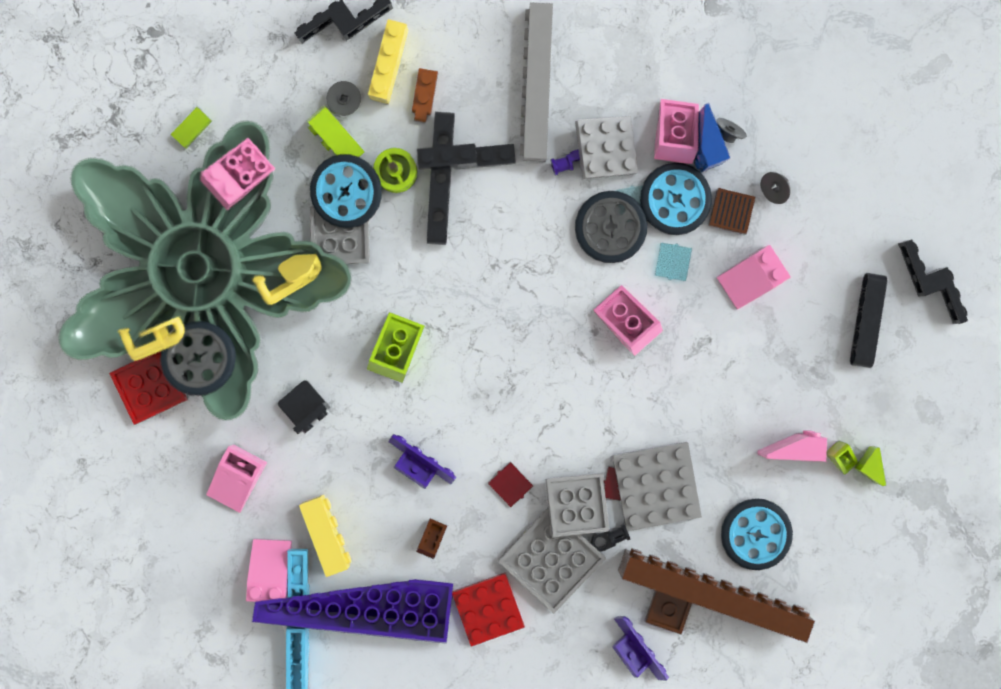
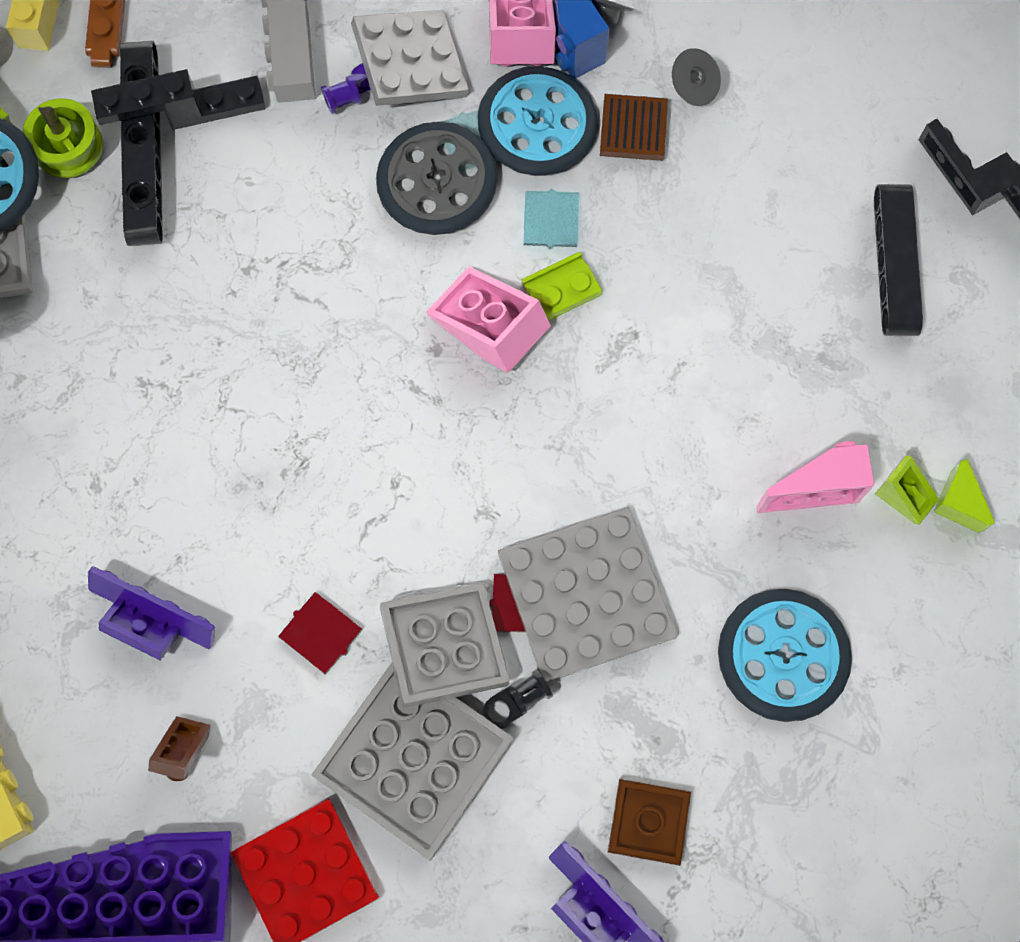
camera: 10 degrees left, 15 degrees down
(395, 347) = (85, 423): lime slope -> none
(672, 306) = (563, 285): none -> lime plate
(716, 595) = (732, 771): reddish brown brick -> none
(753, 276) = (689, 218): bright pink slope -> none

